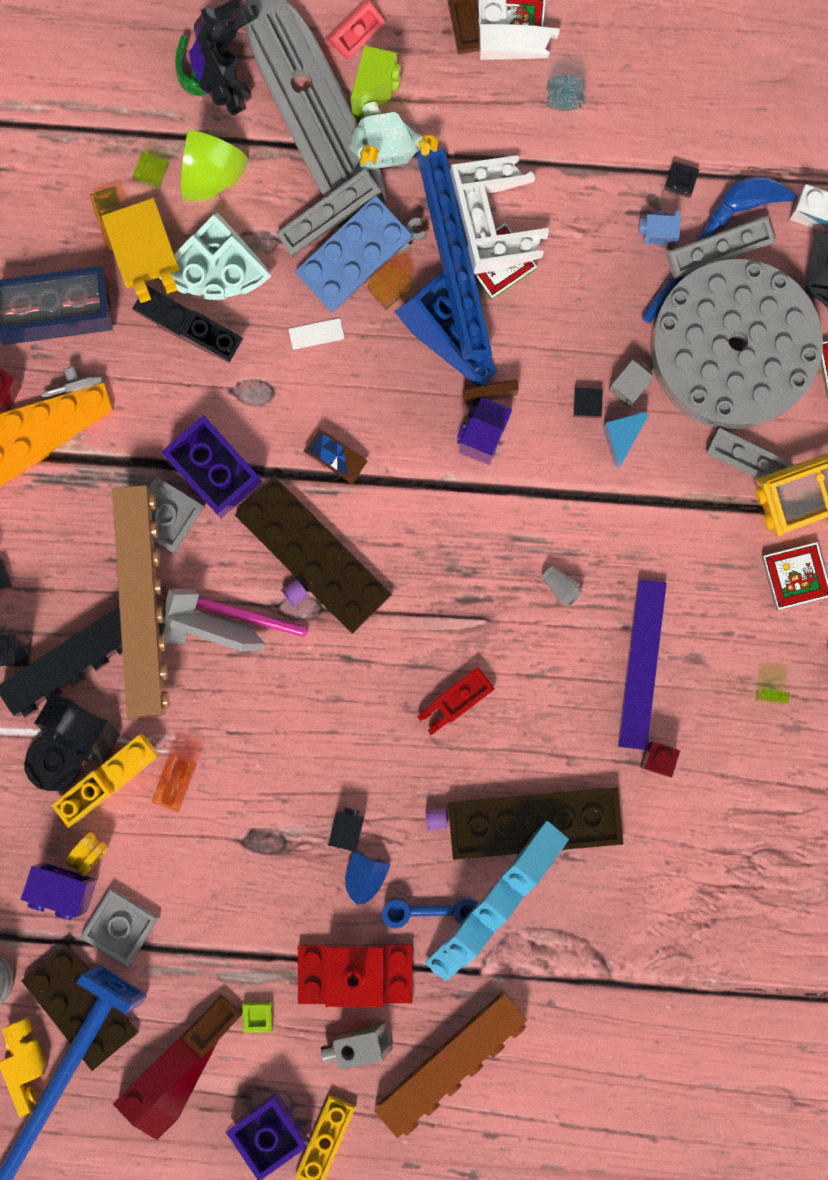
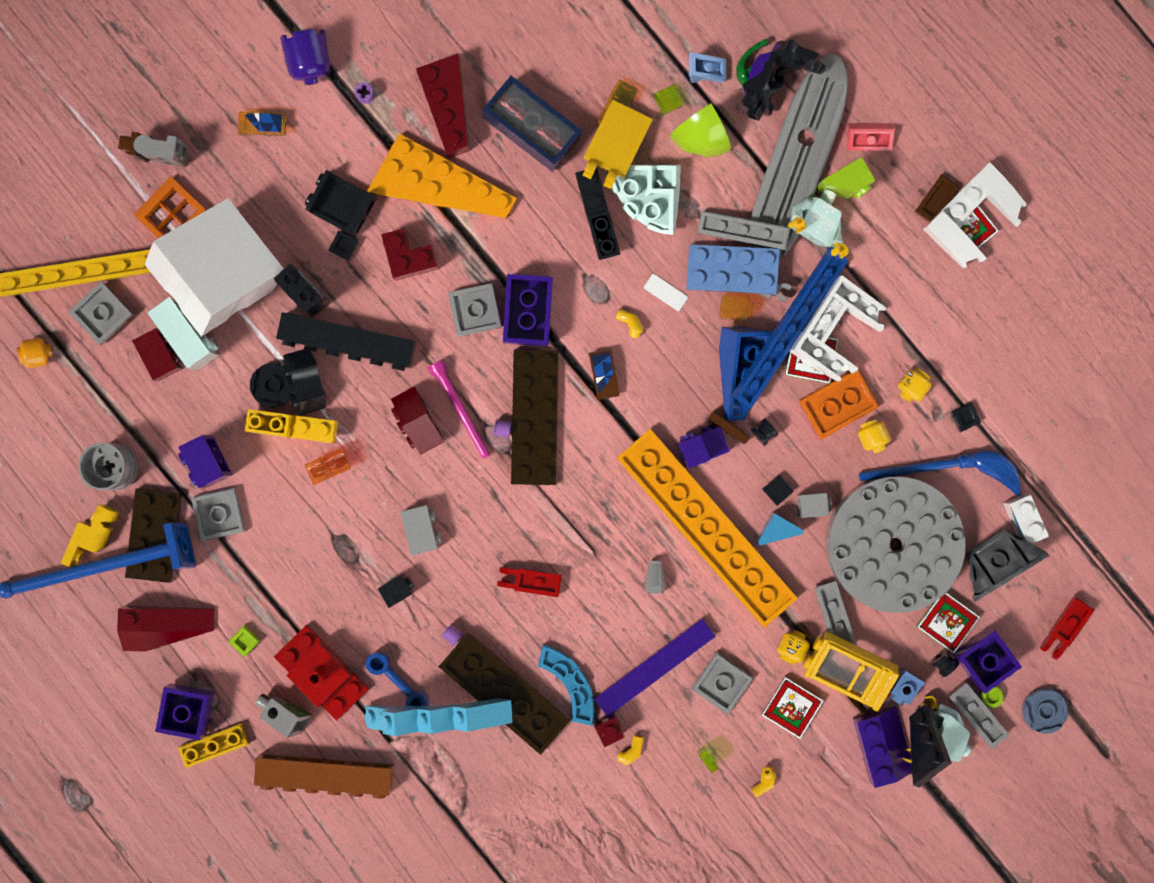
camera: 40 degrees right, 5 degrees up
(64, 532) = (403, 260): none -> dark red brick
(73, 384) = (499, 180): light grey piece -> none
(86, 854) = (240, 456): yellow wheel -> none
(139, 601) = (409, 347): medium nougat brick -> none
(155, 109) = (706, 68): none -> light blue slope
(183, 620) = (425, 380): light grey piece -> none
(211, 1026) = (214, 620): reddish brown tile -> none
(212, 662) = (416, 421): none -> dark red brick
(312, 754) = (420, 529): none -> light grey brick
(315, 386) = (633, 322): none -> yellow arm
(364, 877) = (380, 625): blue brick -> none
(524, 364) = (764, 432): none -> black wheel
(561, 497) = (707, 528): none -> light orange plate
(563, 277) = (838, 404): none -> orange tile
(565, 92) = (951, 300): clear light blue wheel -> none
(584, 749) = (573, 679): none -> dark azure tile
(610, 195) = (914, 385): none -> yellow head
(621, 272) = (874, 436): none -> yellow head
(660, 228) = (922, 433): medium blue brick -> none
(702, 759) = (633, 753): none -> yellow arm
(714, 617) = (722, 683): none -> light grey tile
(720, 247) = (945, 479): light grey tile -> none
(743, 522) = (793, 647): none -> yellow head

